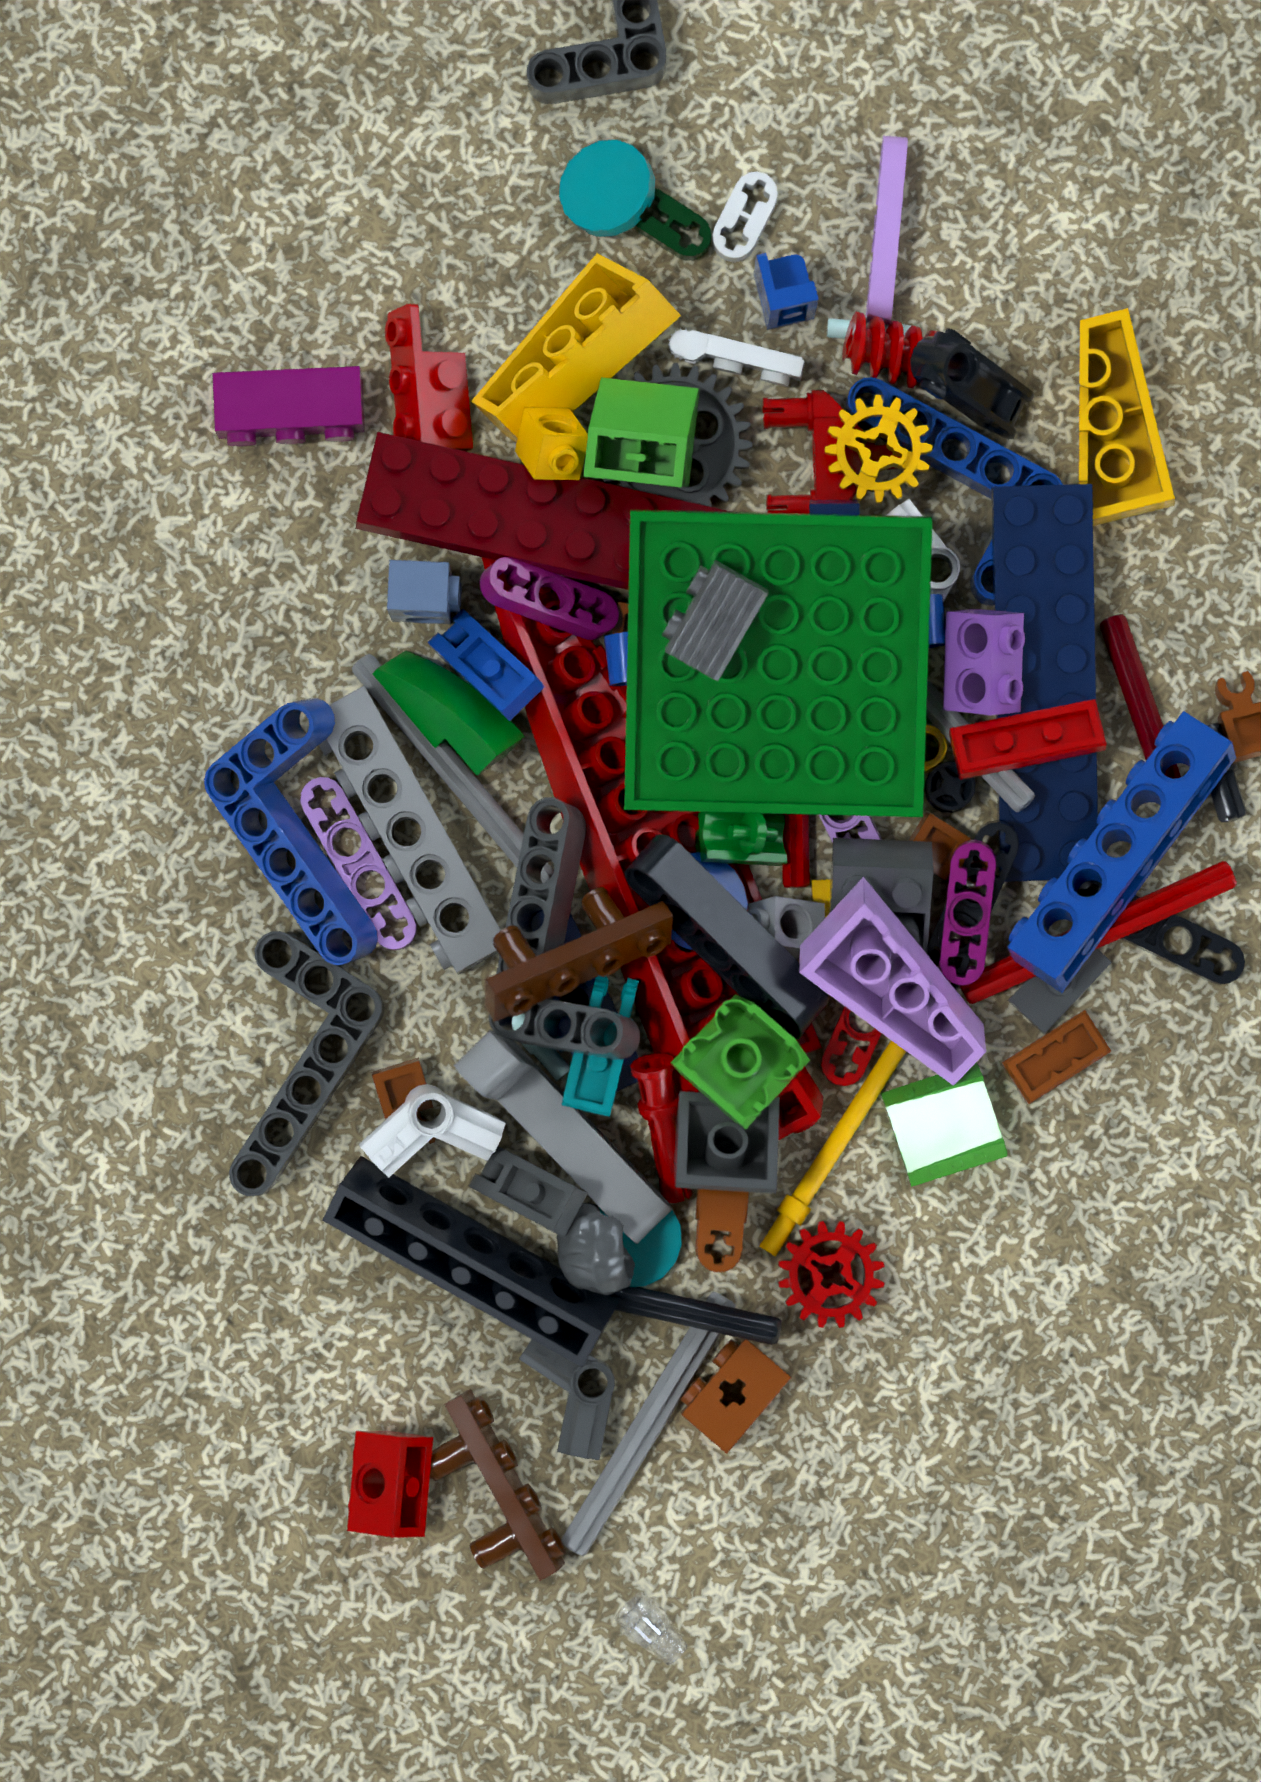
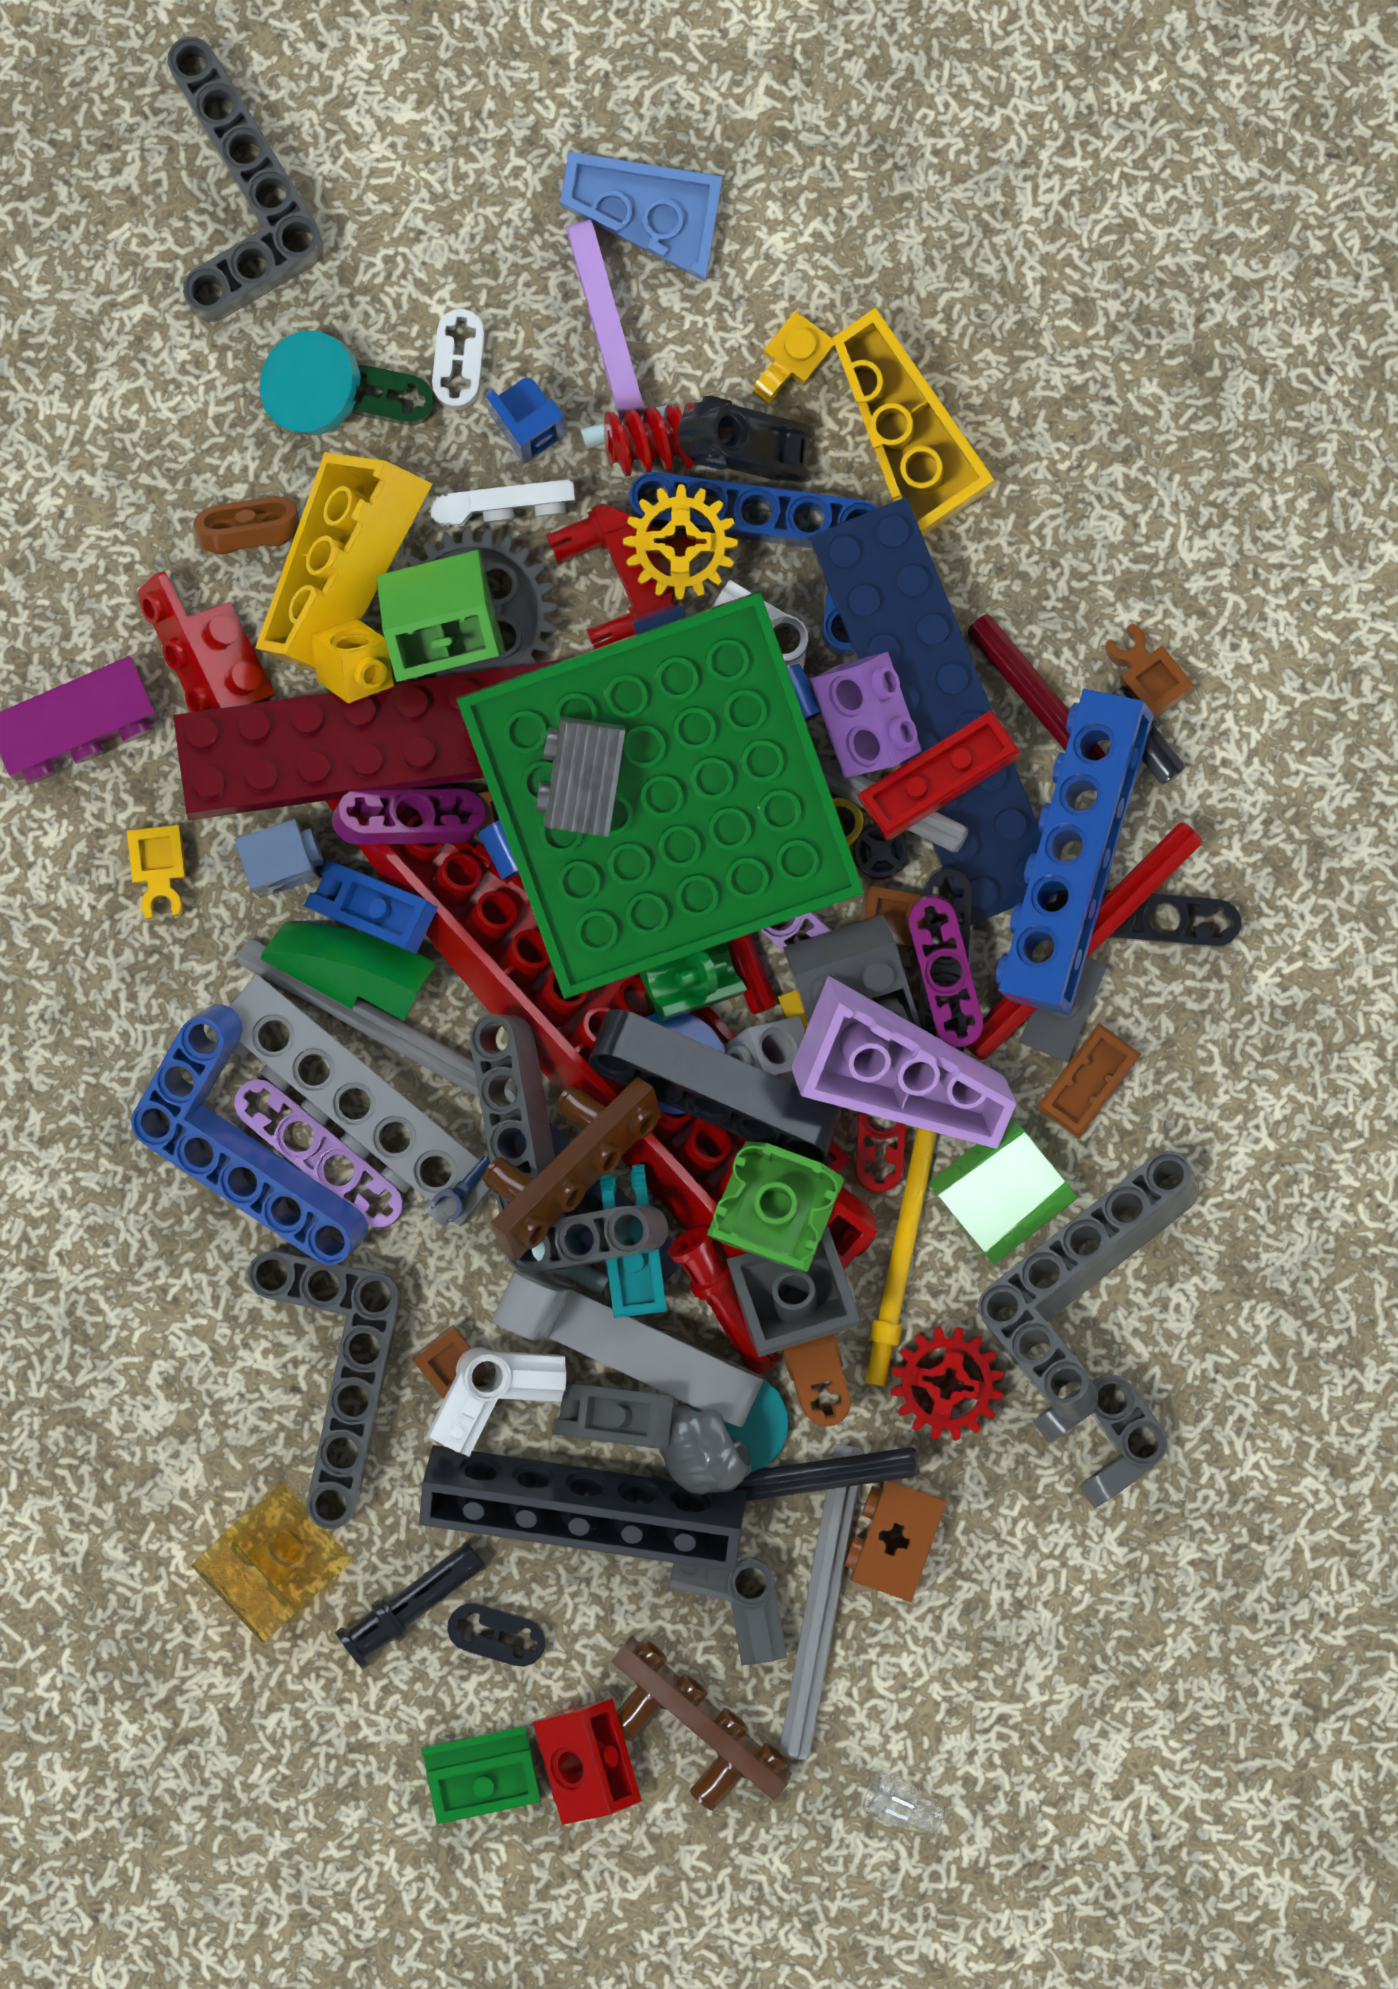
camera: 20 degrees left, 0 degrees up
(181, 1204) = (271, 1563): none -> clear yellow slope
(266, 1293) = (390, 1618): none -> black pin
(293, 1459) = (481, 1774): none -> green plate
(314, 554) = (157, 860): none -> yellow plate
(345, 1352) = (492, 1647): none -> black beam
(472, 941) = (462, 1188): none -> dark blue hand
(505, 291) = (246, 524): none -> dark orange plate
(961, 144) = (648, 206): none -> medium blue wing
(965, 1370) = (1117, 1427): none -> dark grey piece
(983, 1223) = (1079, 1274): none -> dark grey beam
(1041, 321) = (795, 353): none -> yellow plate

